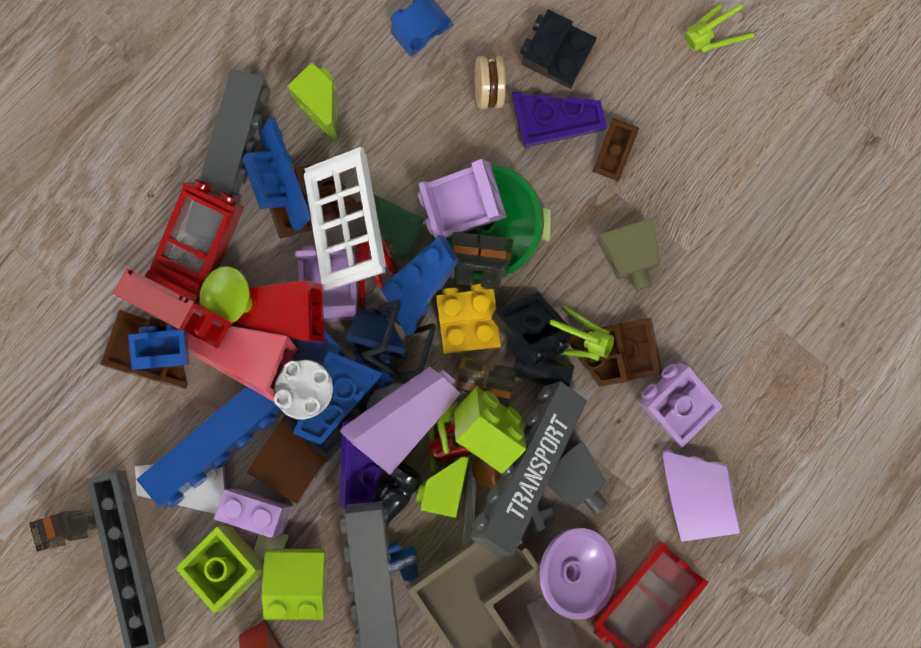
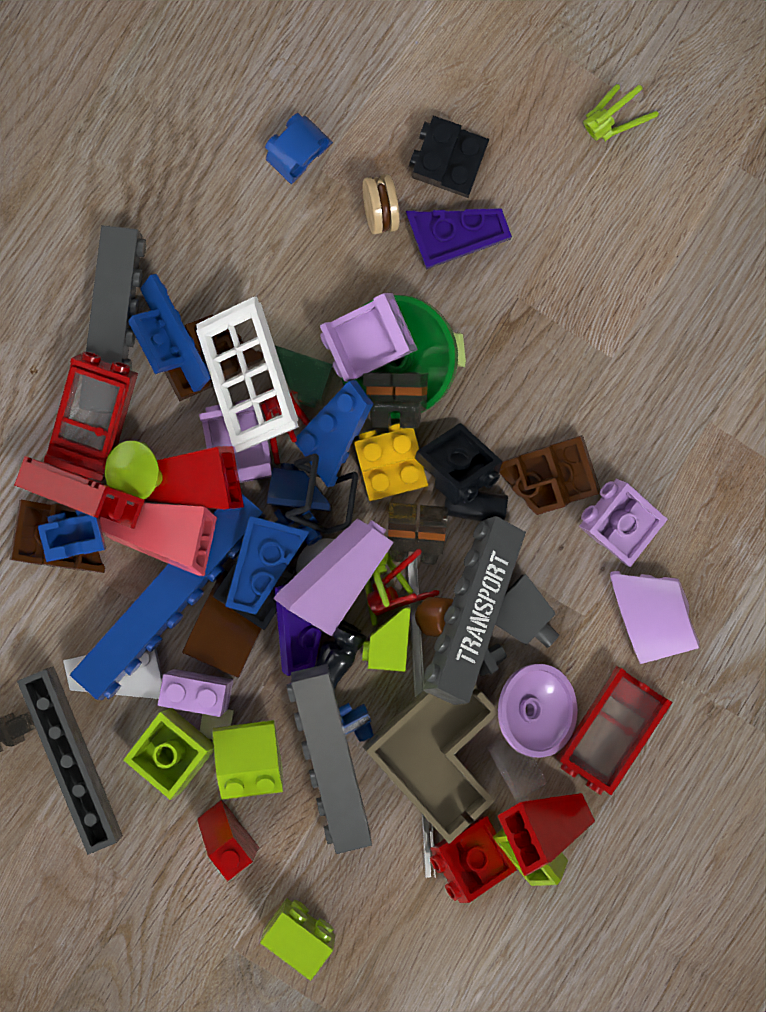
camera: 10 degrees left, 5 degrees up
(303, 389) = (229, 560): white dish -> none
(317, 98) = (199, 245): lime slope -> none
(489, 429) = (428, 576): lime brick -> none
(598, 342) = (529, 470): lime plant -> none
(615, 149) = (524, 258): reddish brown slope -> none
(632, 251) = (554, 368): olive torso -> none

